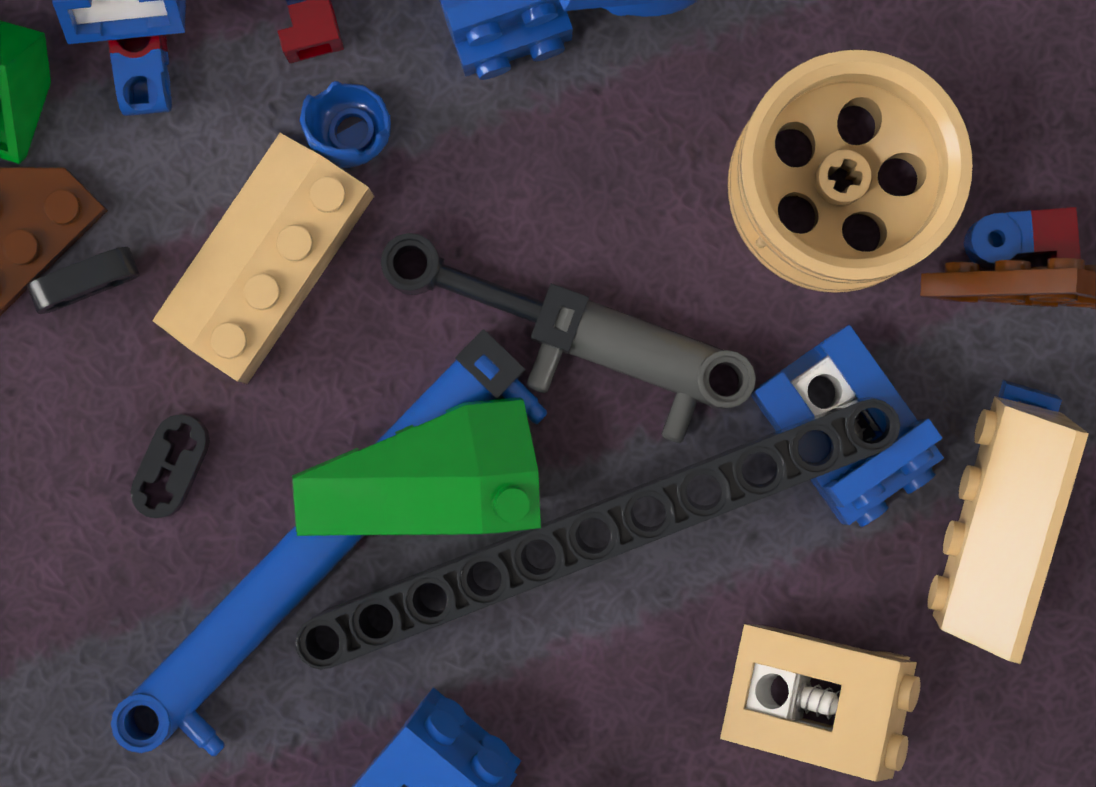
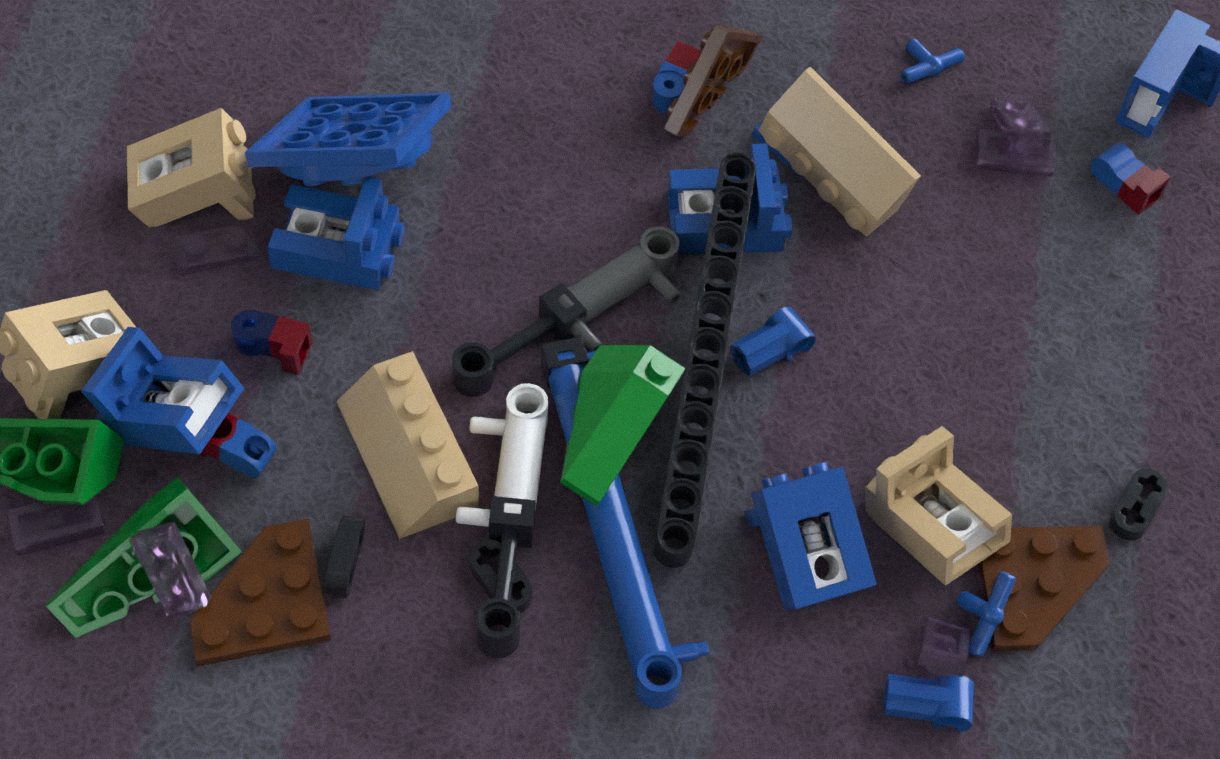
camera: 60 degrees left, 30 degrees down
(260, 428) = (512, 508): none -> piece
(355, 144) = (362, 342): blue hair -> none
(693, 598) = (779, 338): none -> blue piece
(868, 712) = (917, 276): tan brick -> none
(912, 124) = (572, 158): tan wheel -> none

